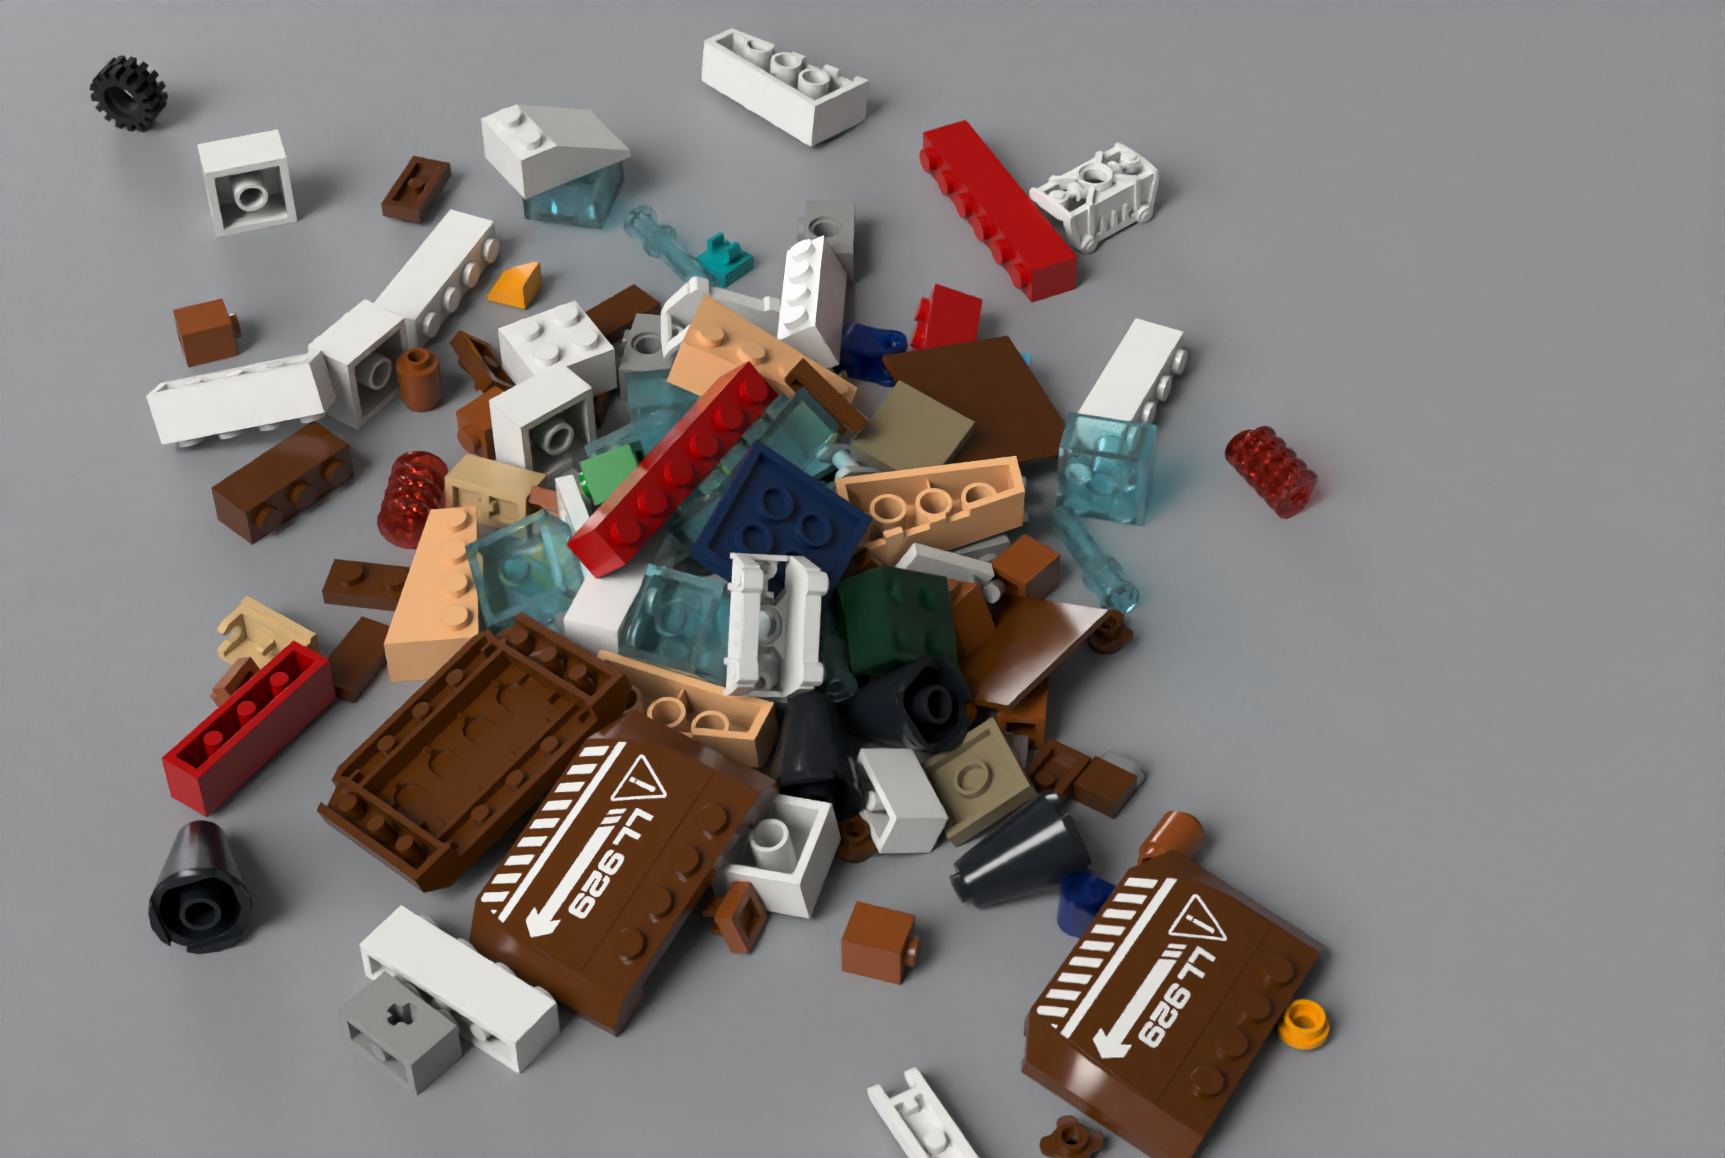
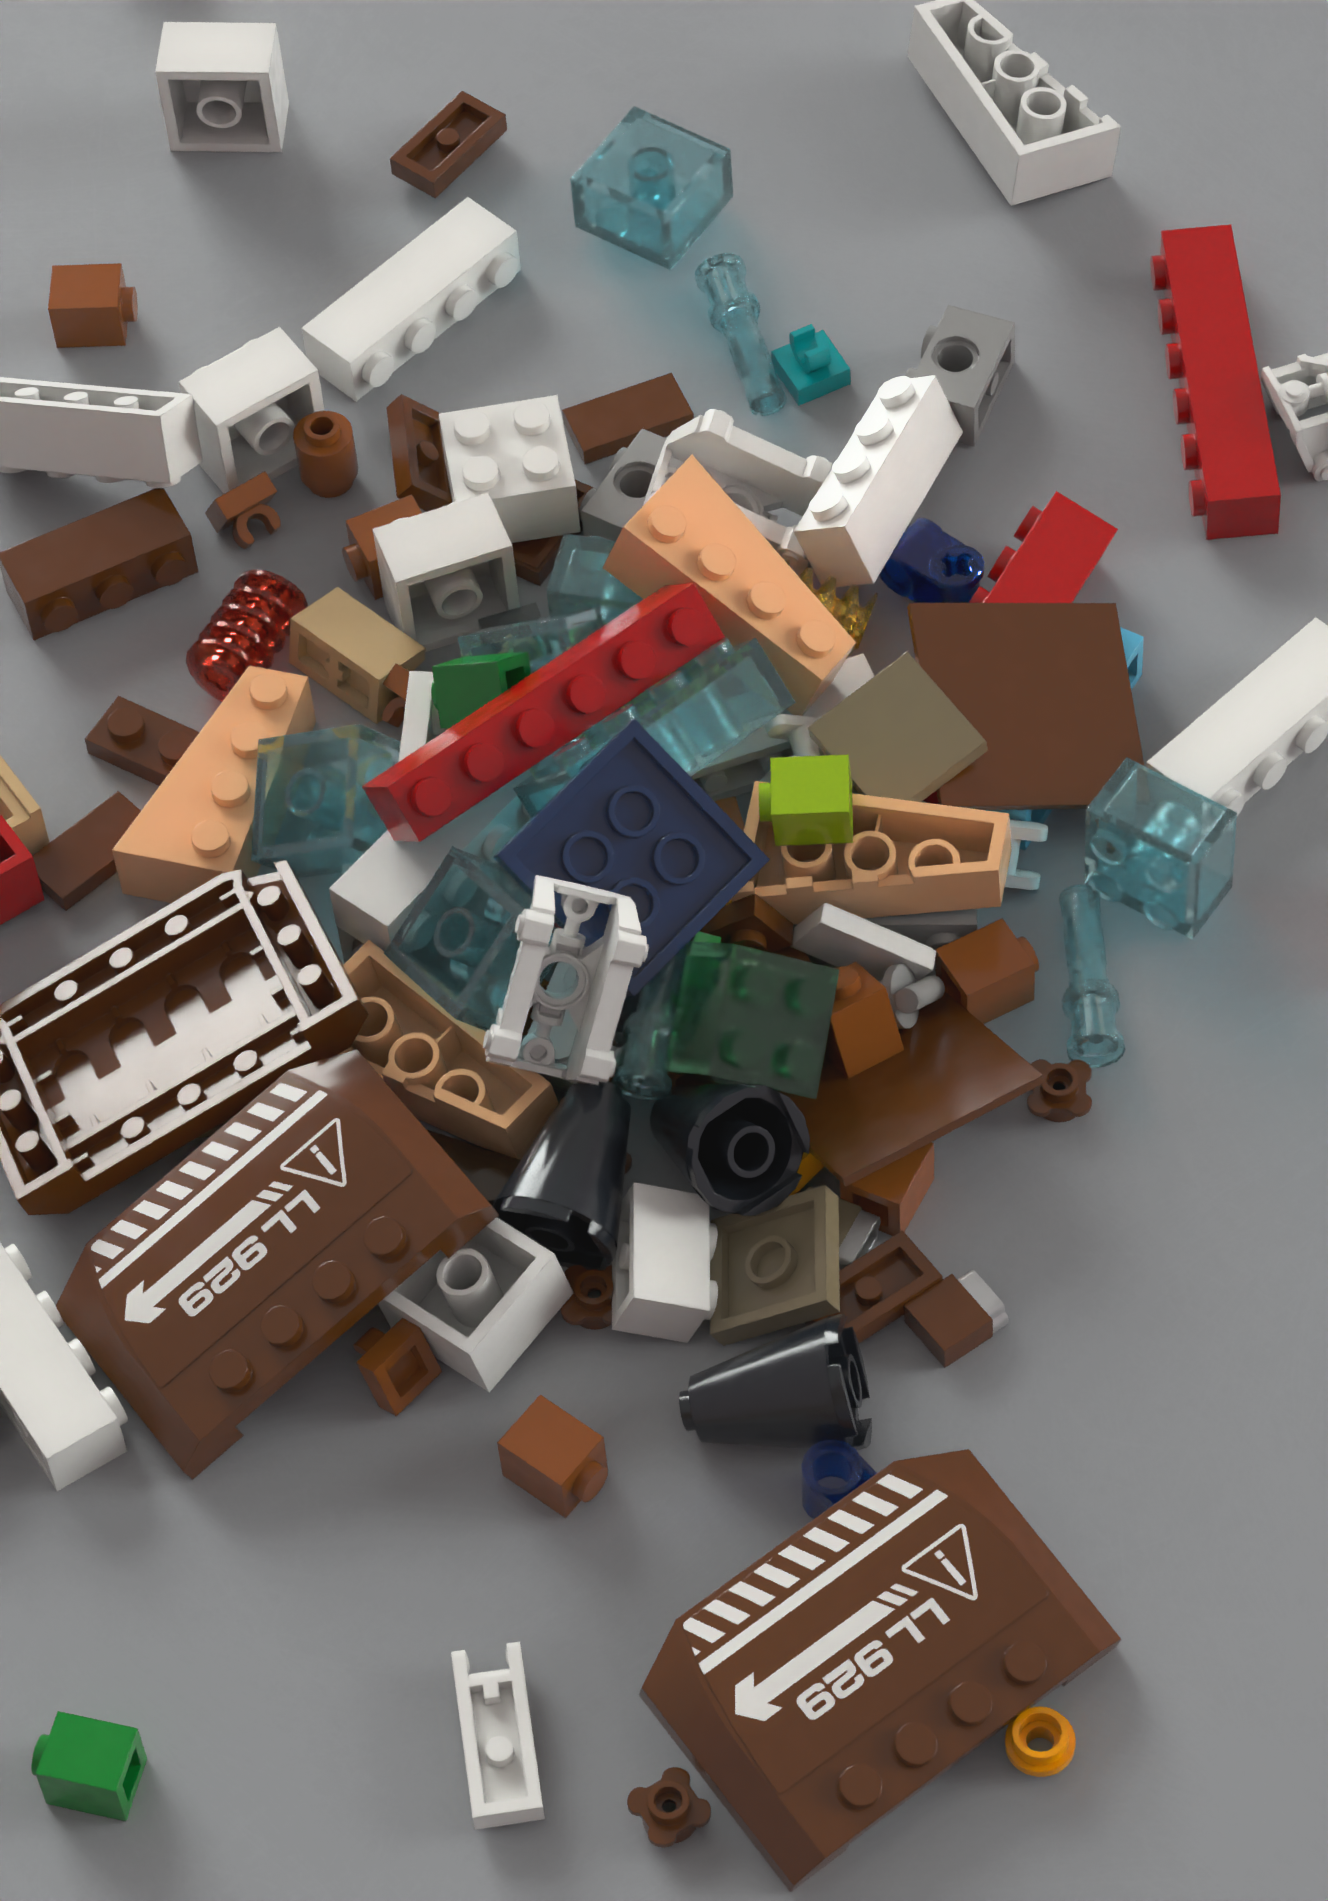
camera: 25 degrees right, 10 degrees up
(373, 424) = (242, 504): none -> dark orange tile
(517, 286) = (520, 333): light orange slope -> none
(548, 146) = (626, 136): white slope -> none
(828, 397) = (785, 661): reddish brown tile -> none
(884, 475) = (808, 800): none -> lime brick
(1174, 831) = (992, 1429): dark orange brick -> none

